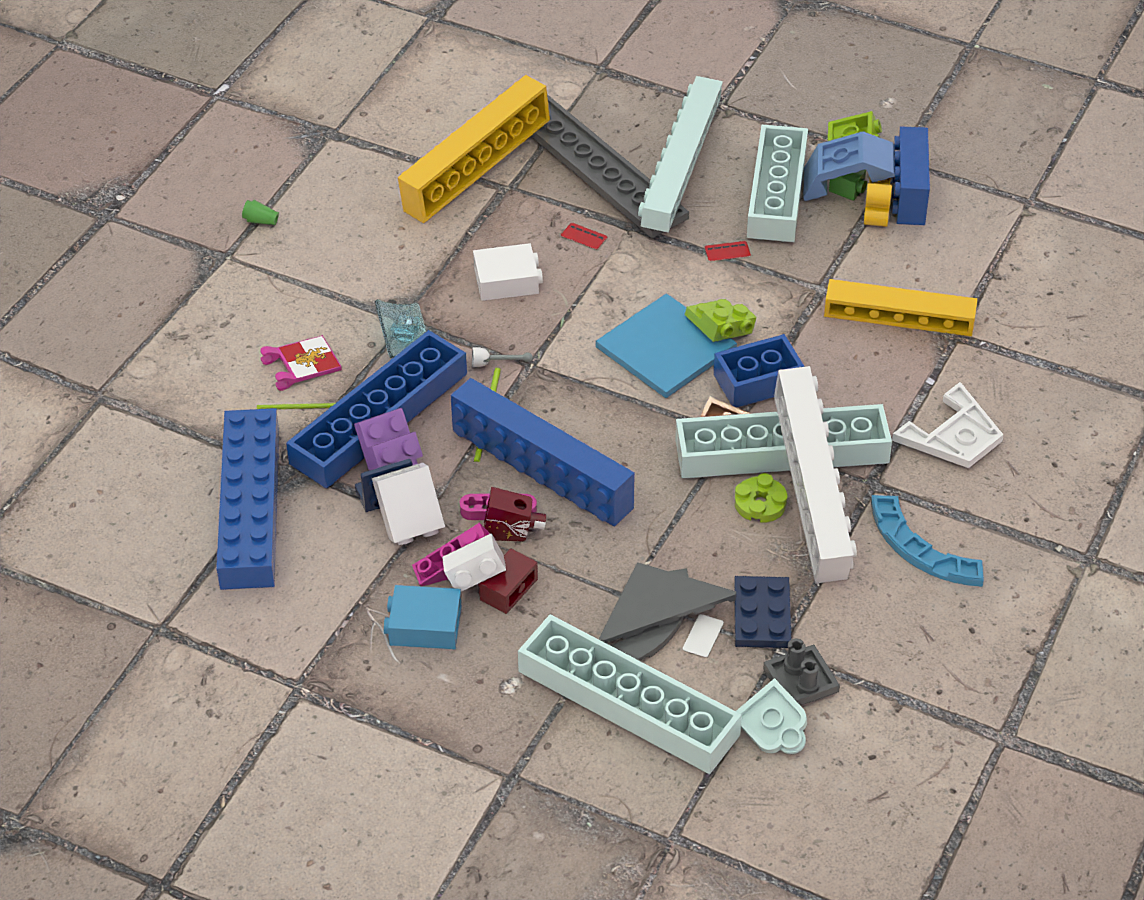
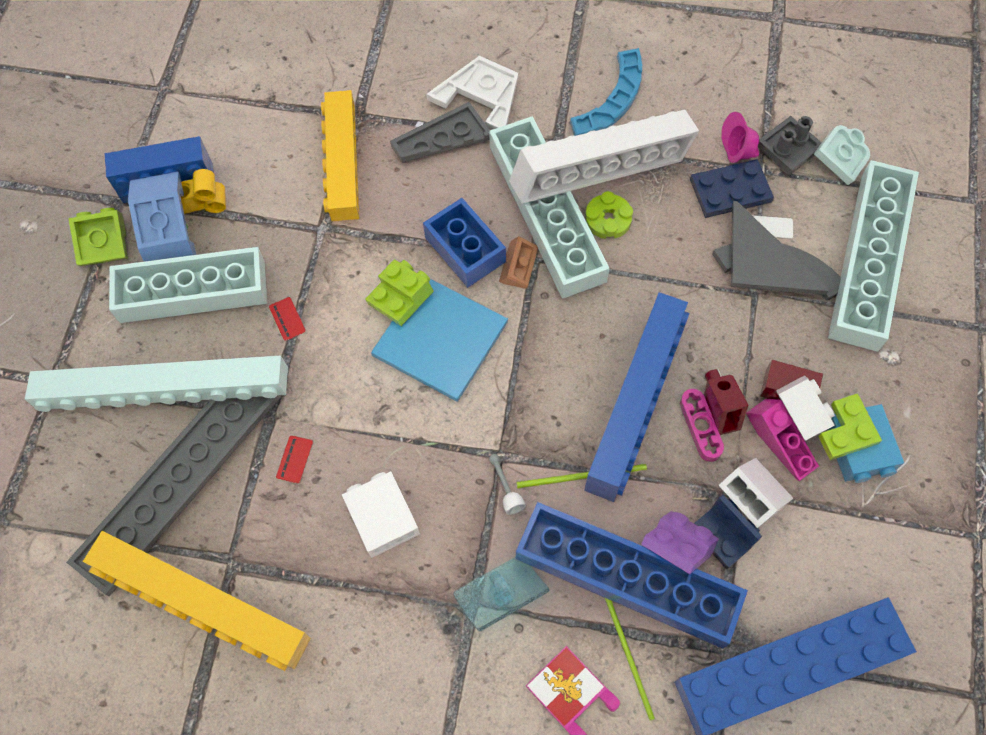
camera: 105 degrees left, 20 degrees up
(436, 598) = (855, 432): none -> lime plate
(816, 627) = (739, 139): none -> dark pink piece
(905, 389) = (447, 132): none -> dark grey wing

